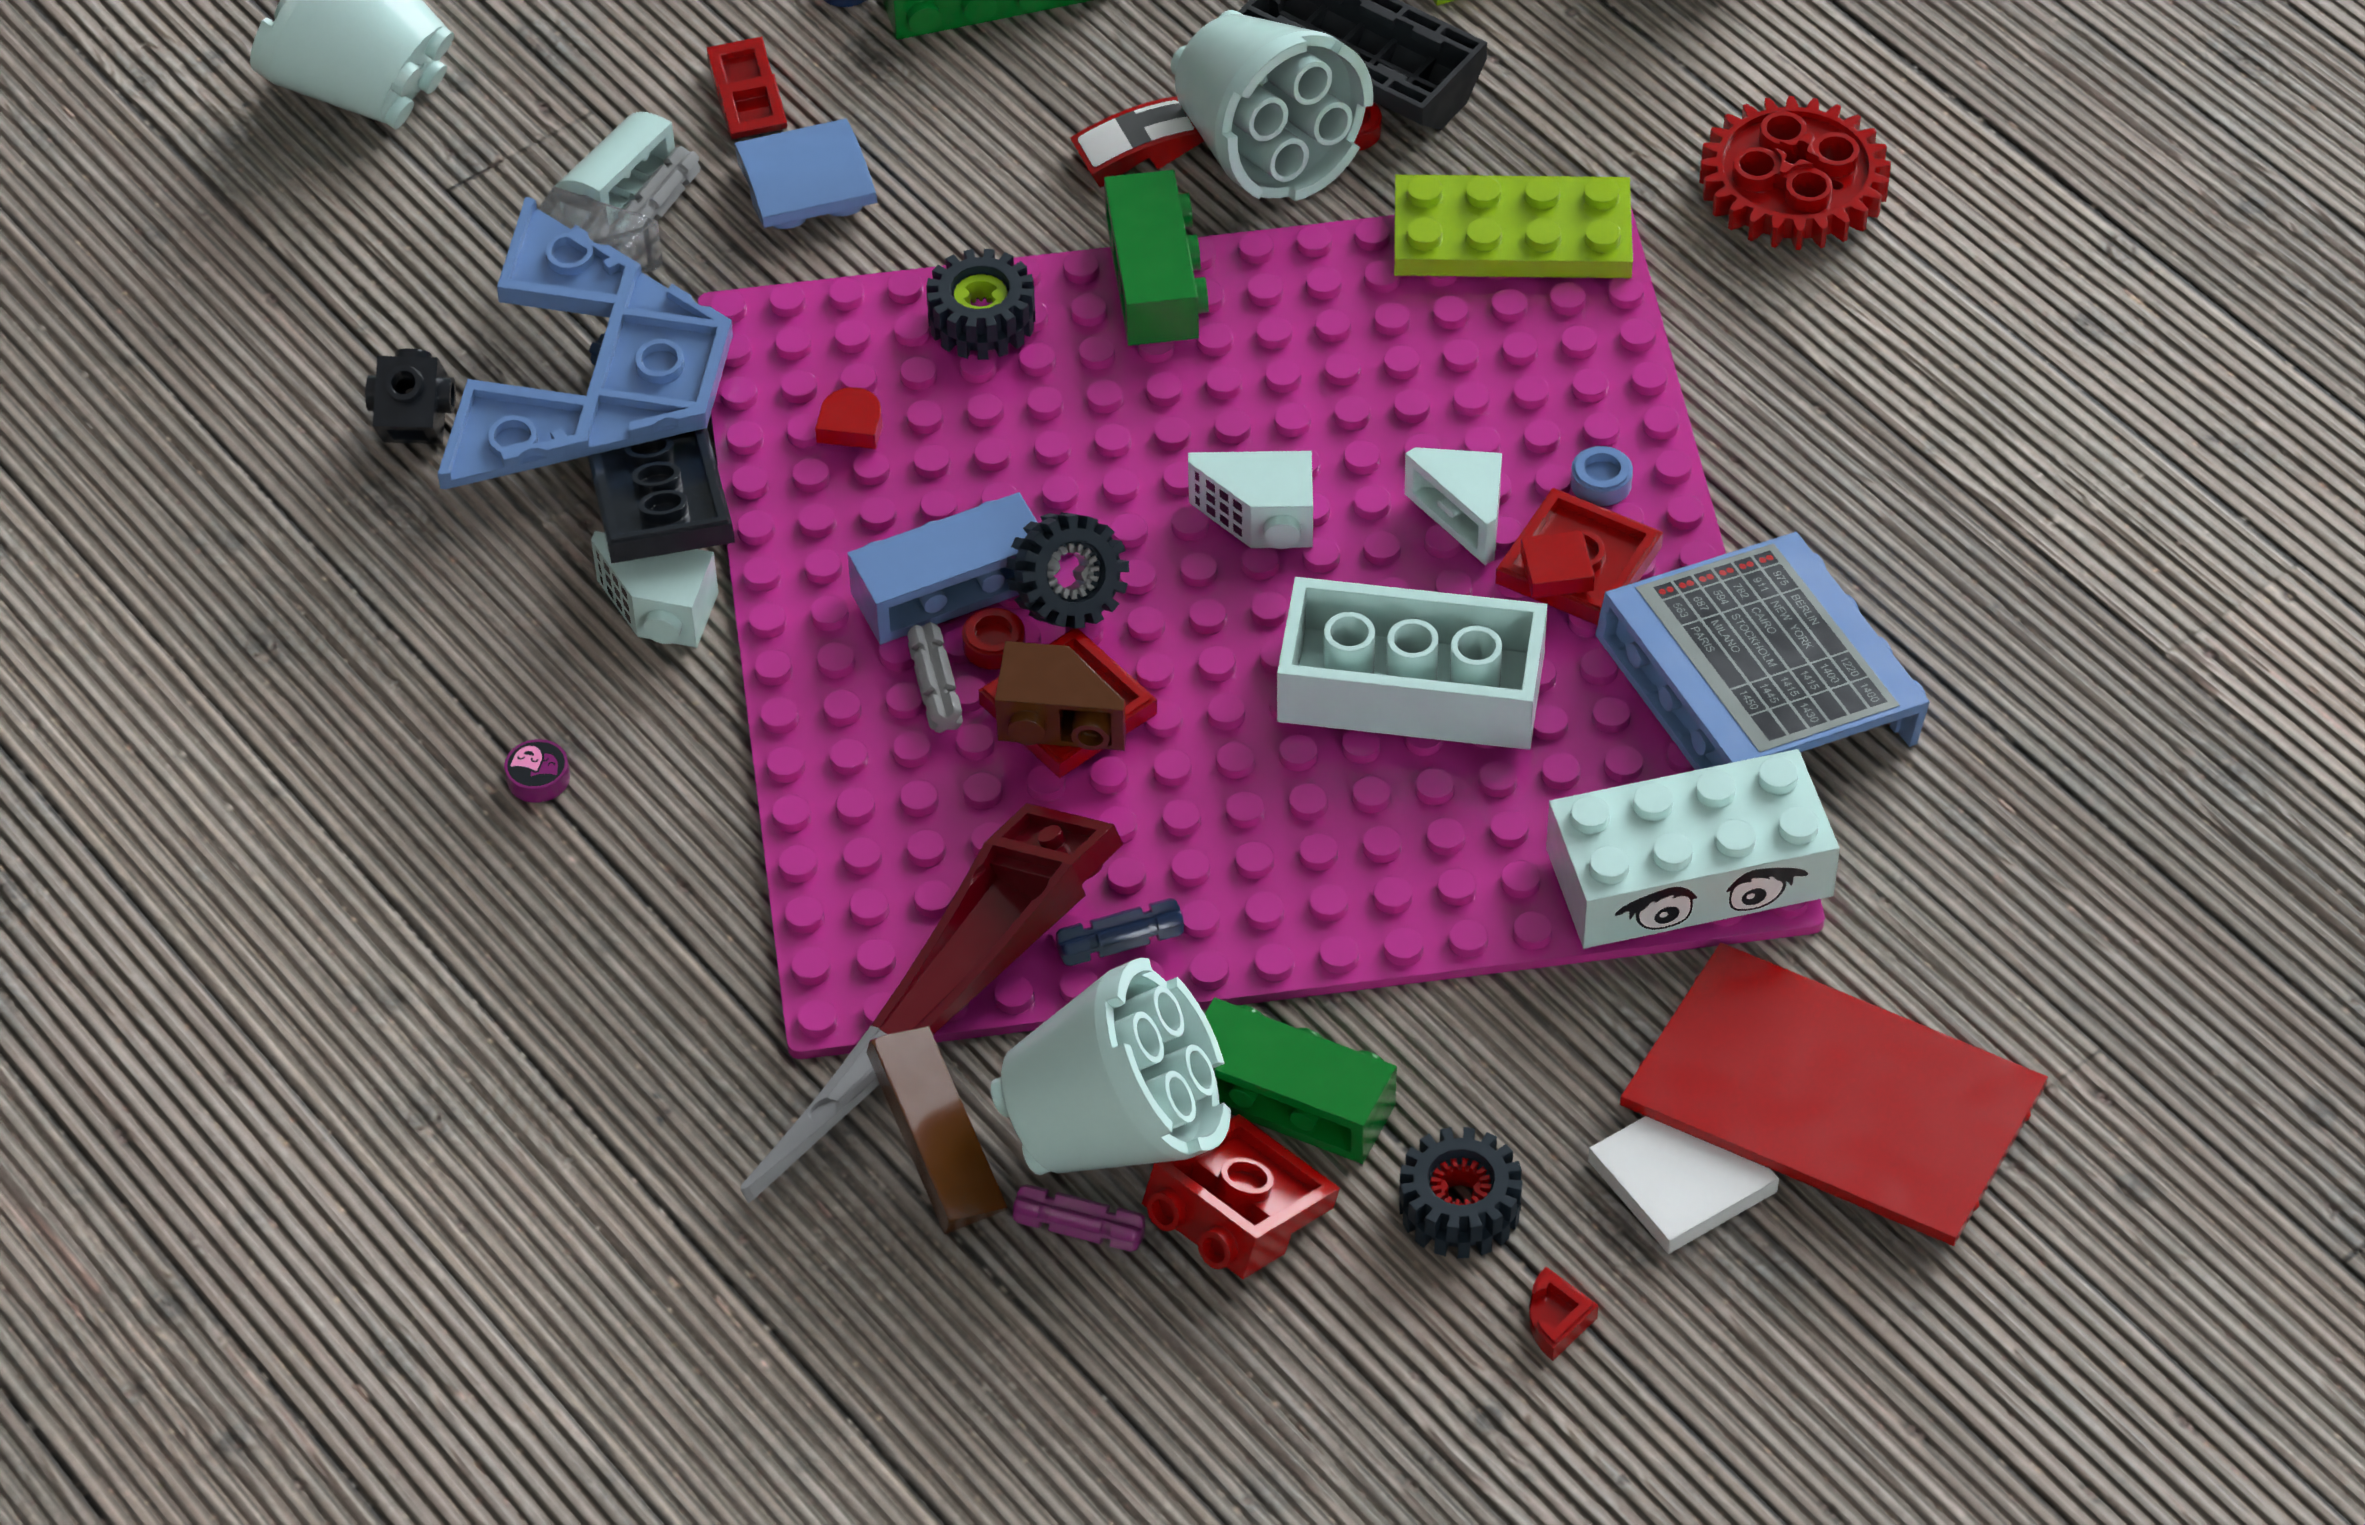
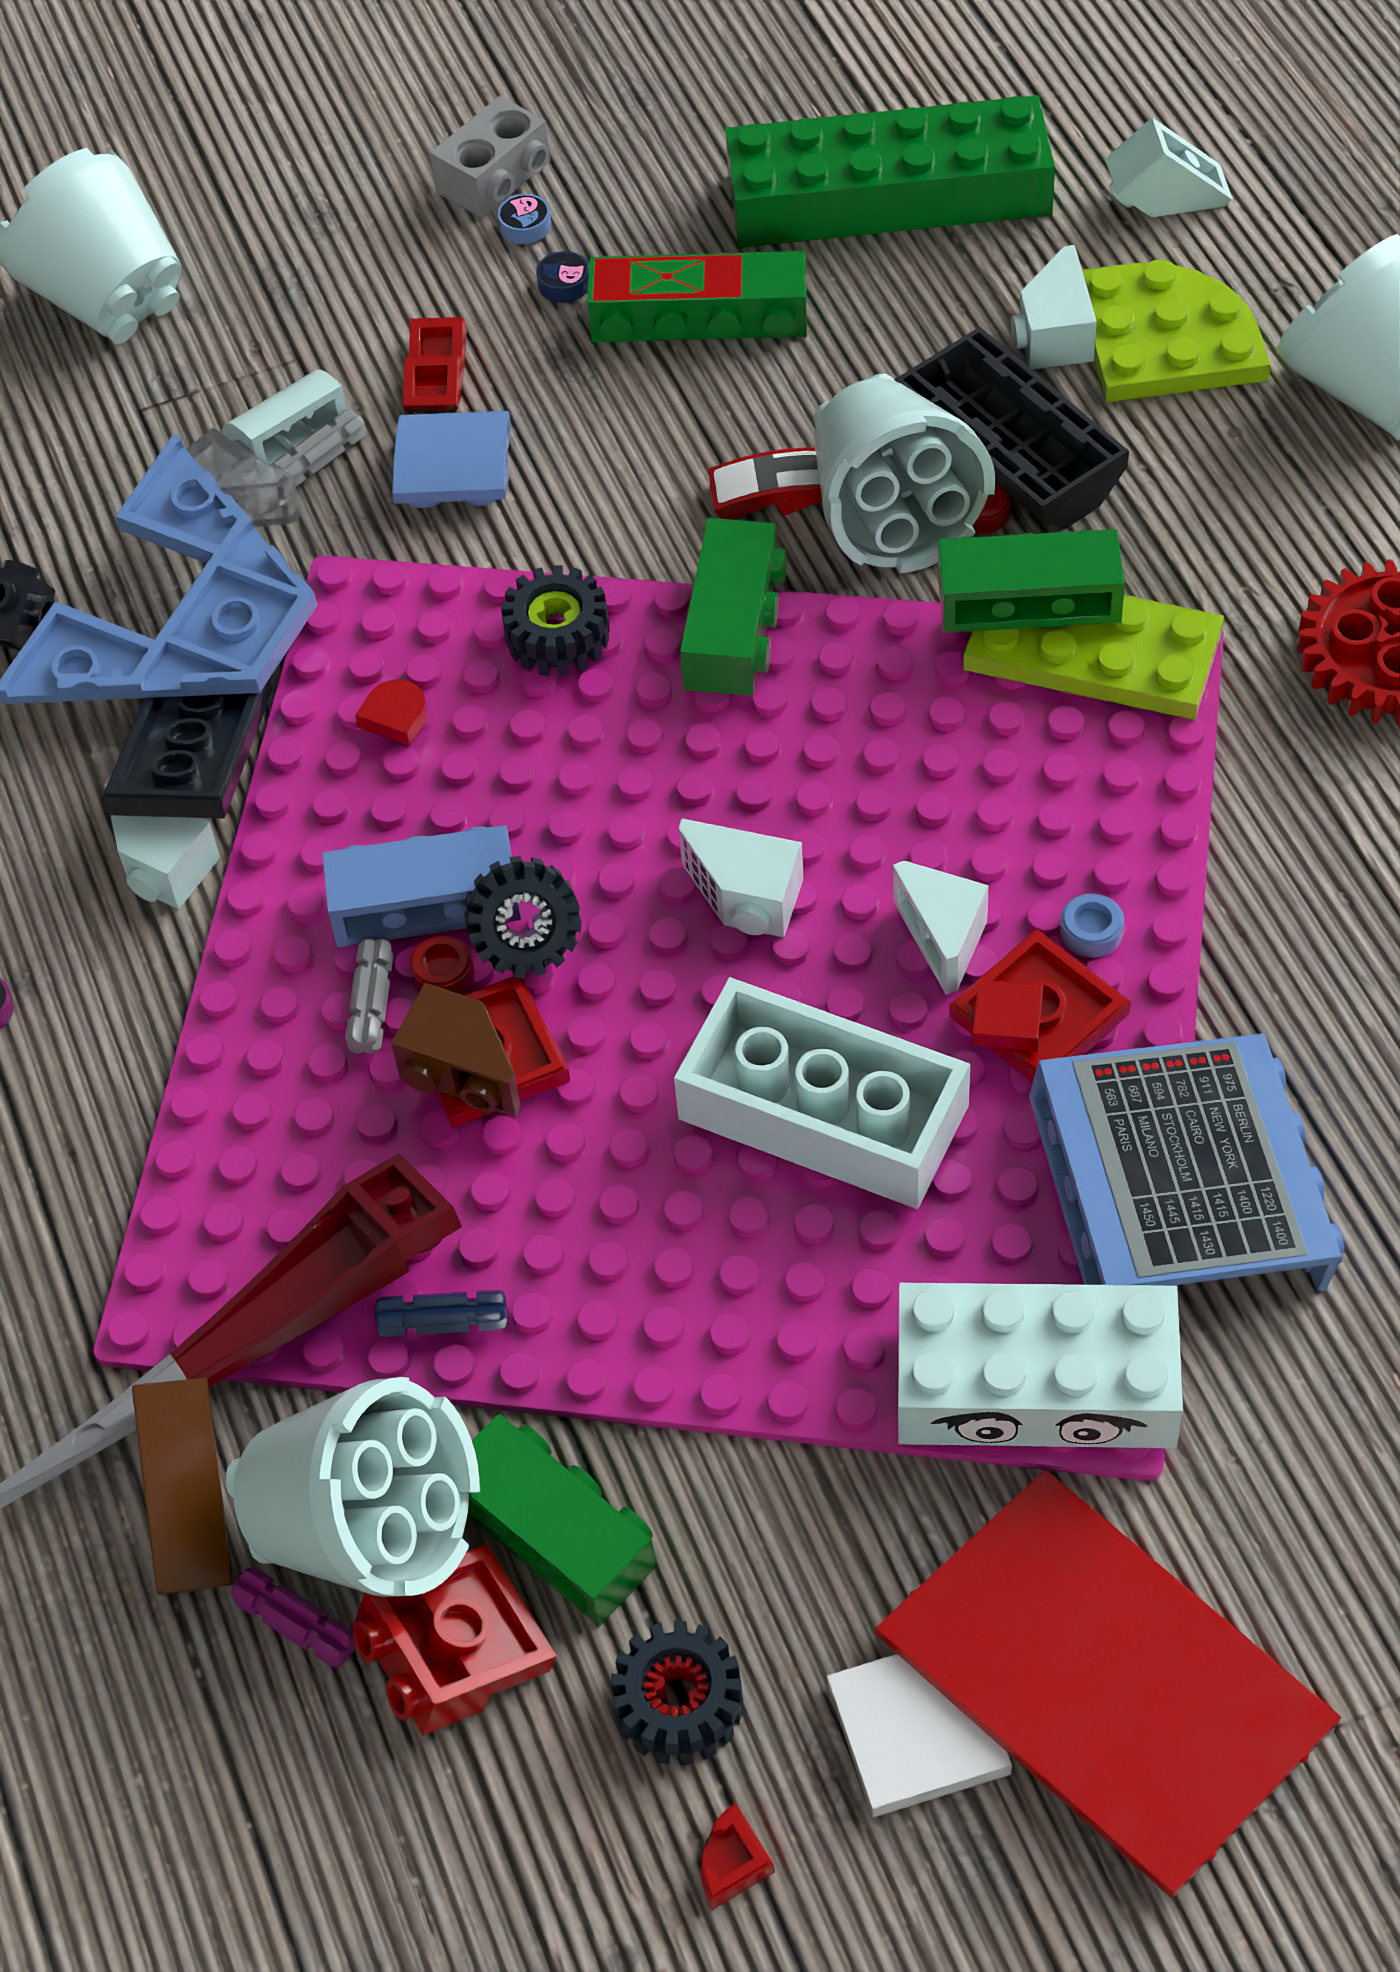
camera: 20 degrees right, 5 degrees up
(1442, 175) = (1030, 580): none -> green brick

